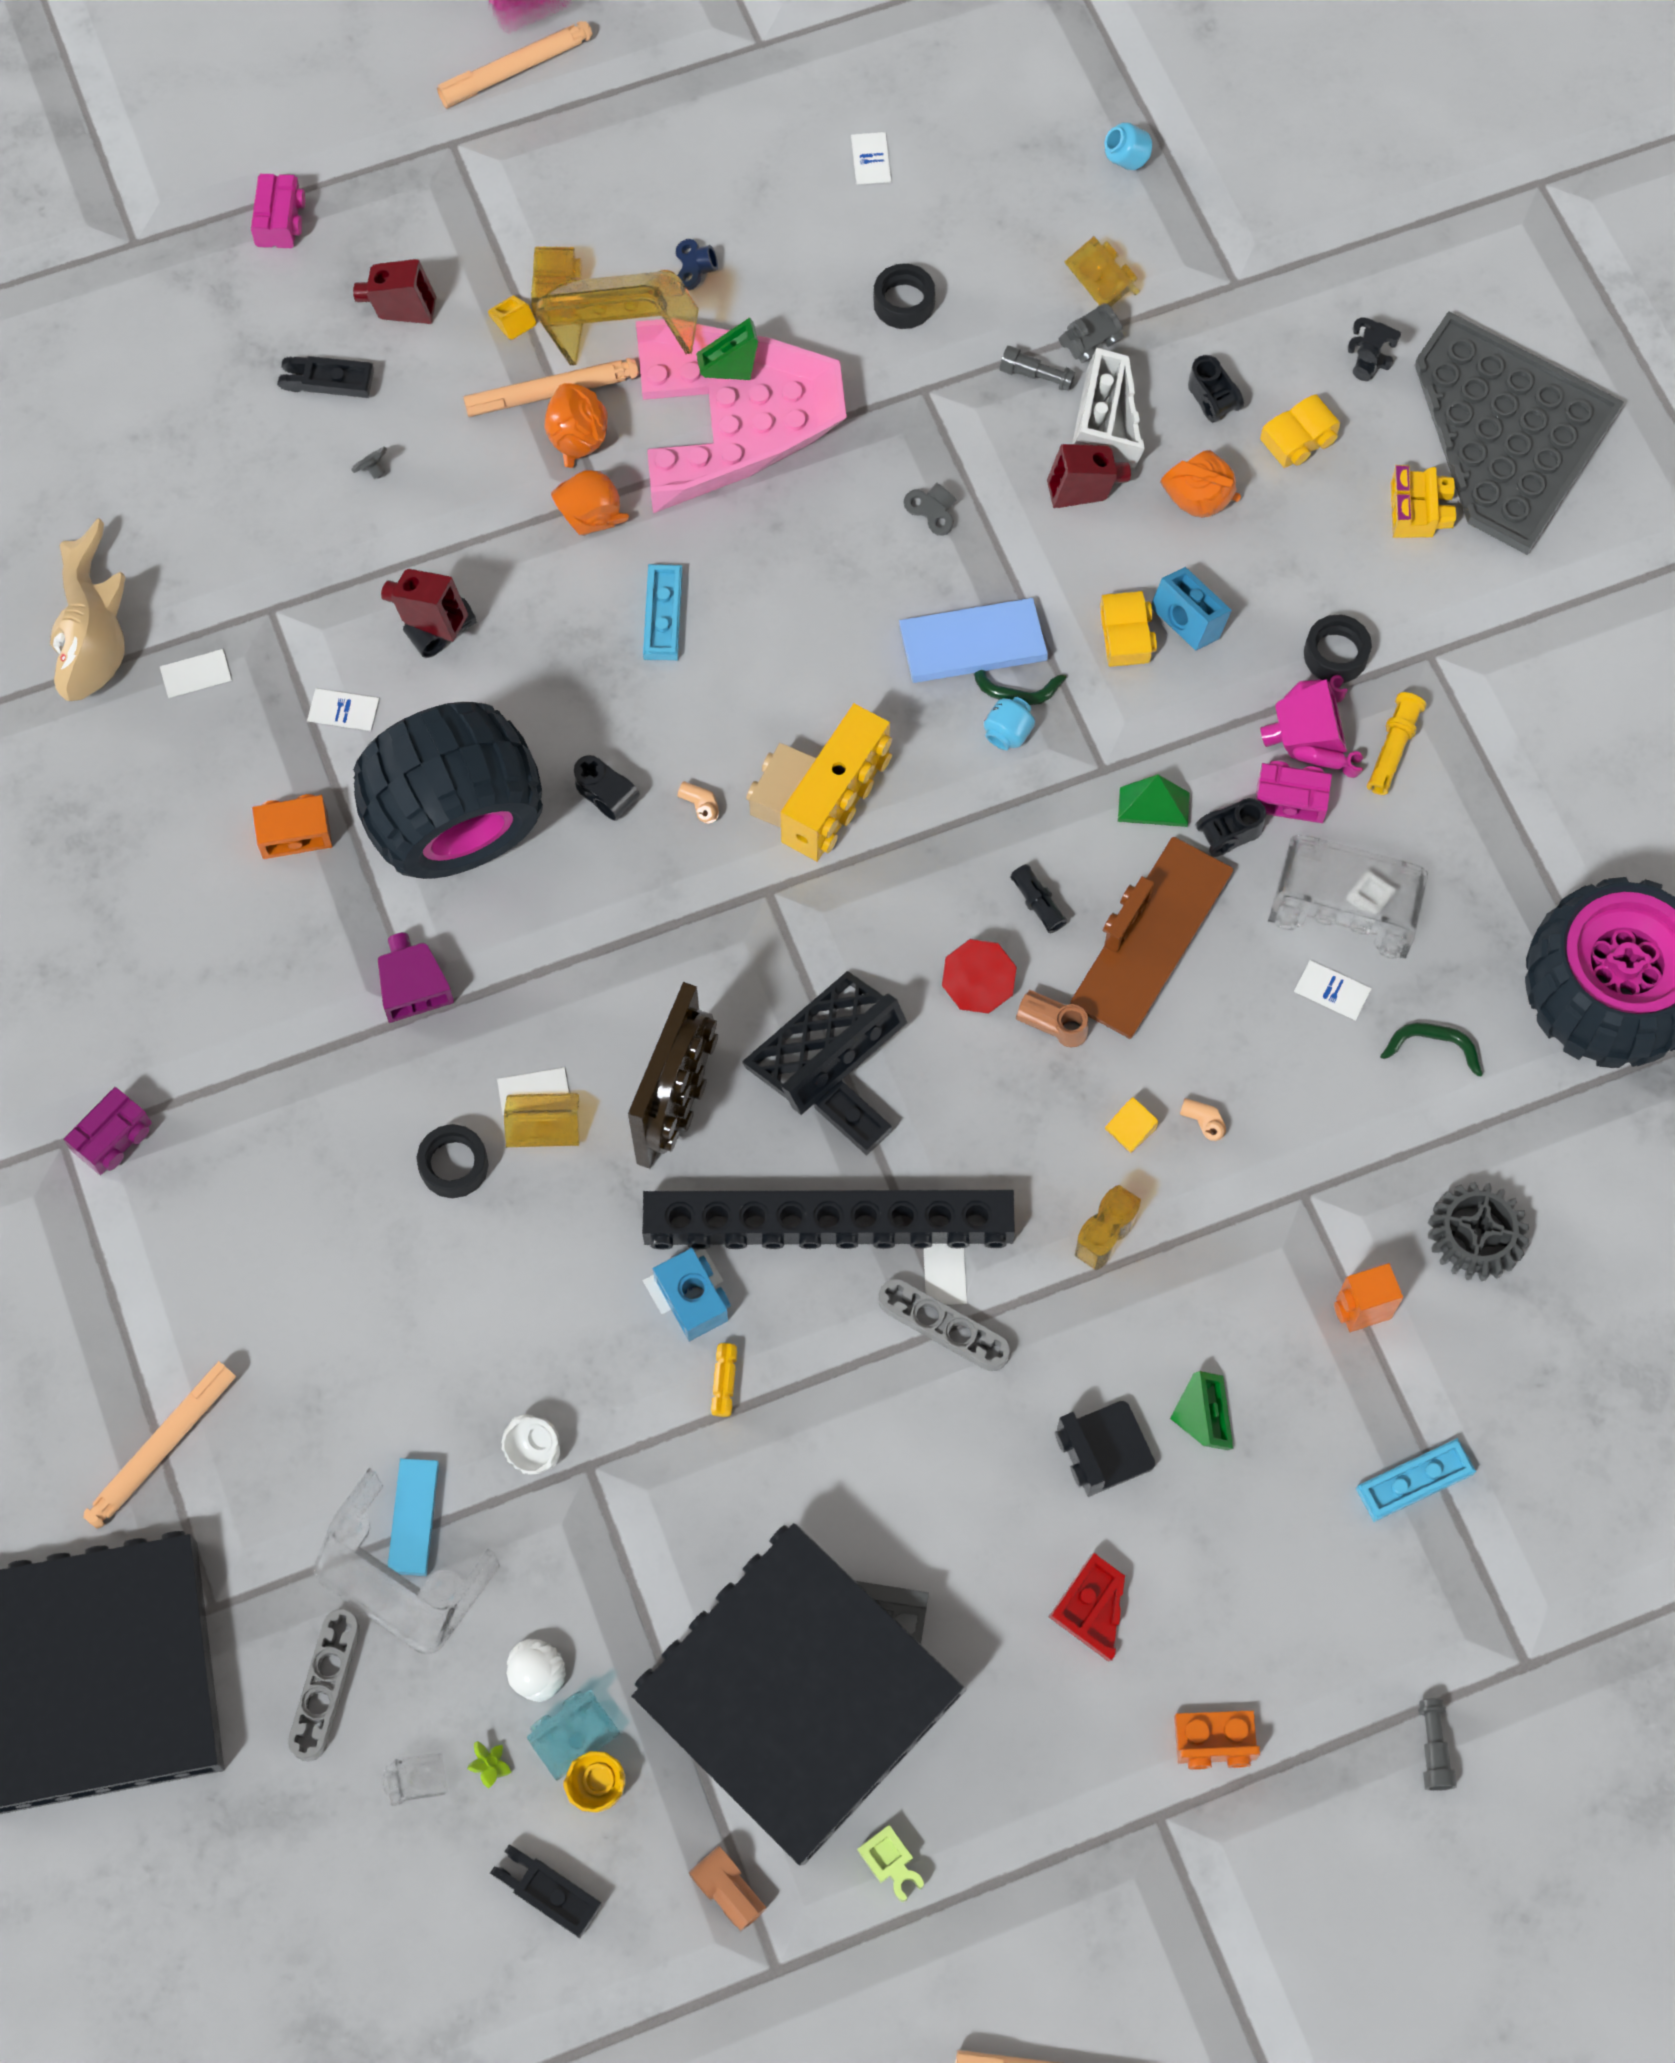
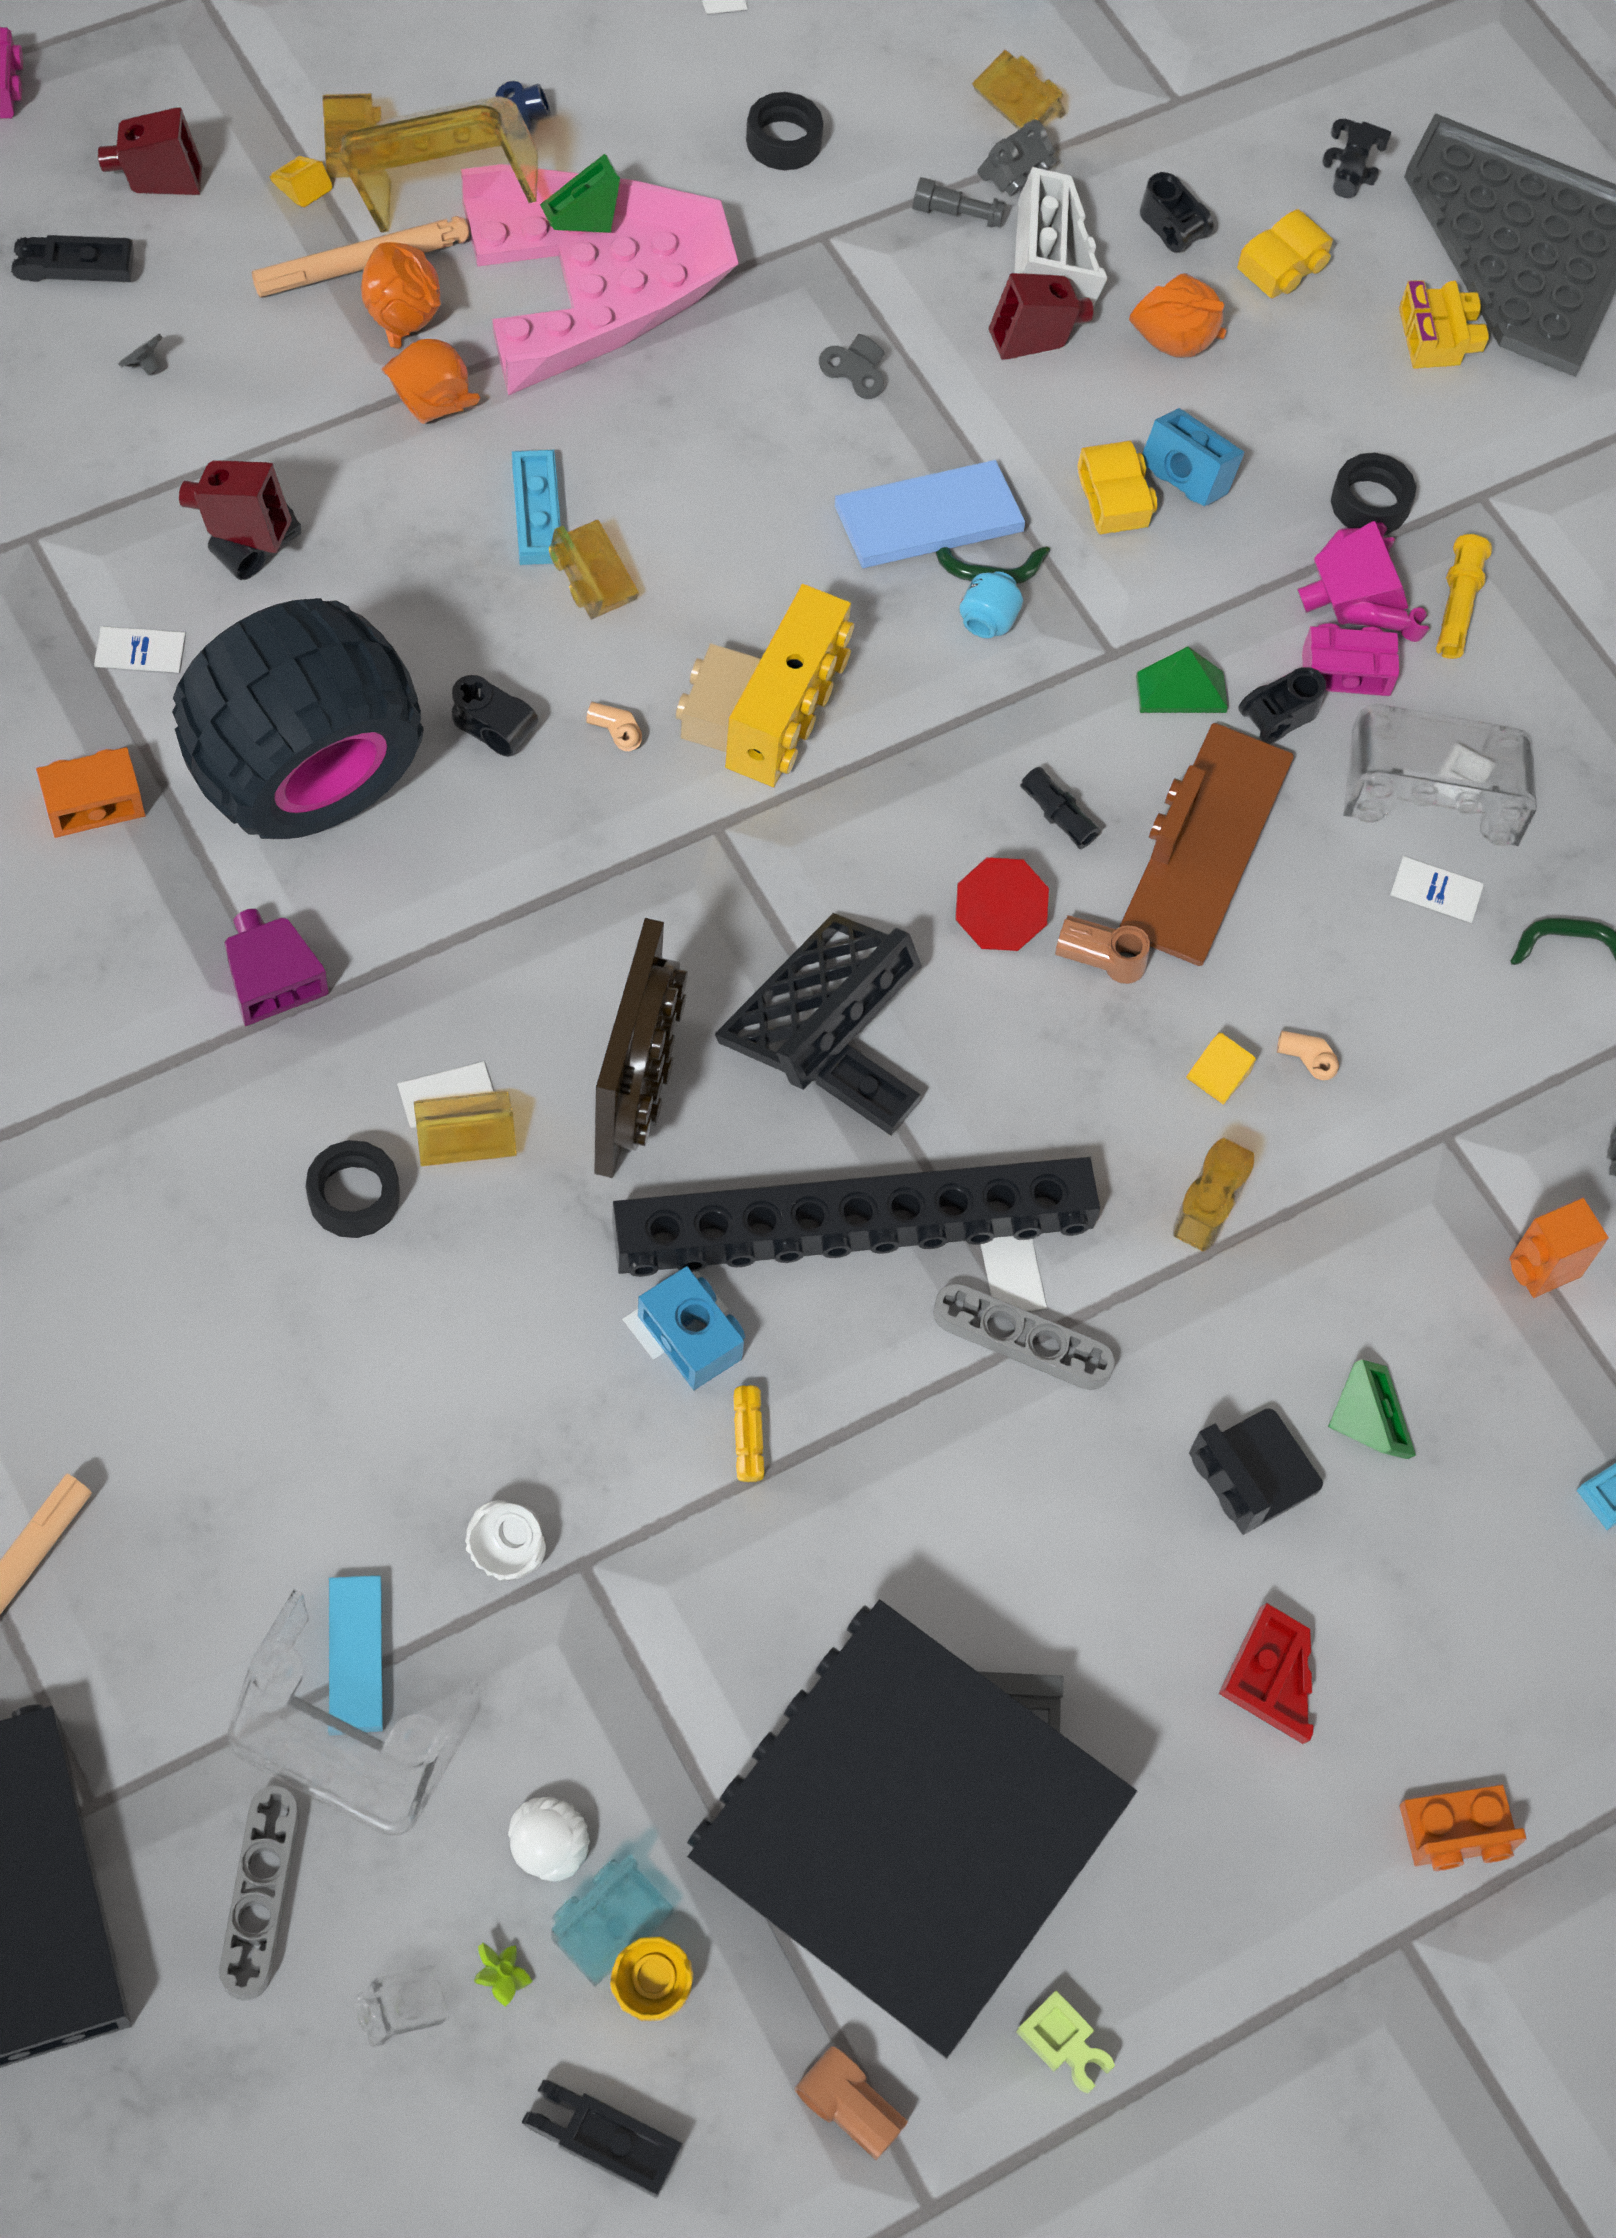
camera: 15 degrees left, 5 degrees down
(699, 670) = (593, 568): none -> clear yellow bracket

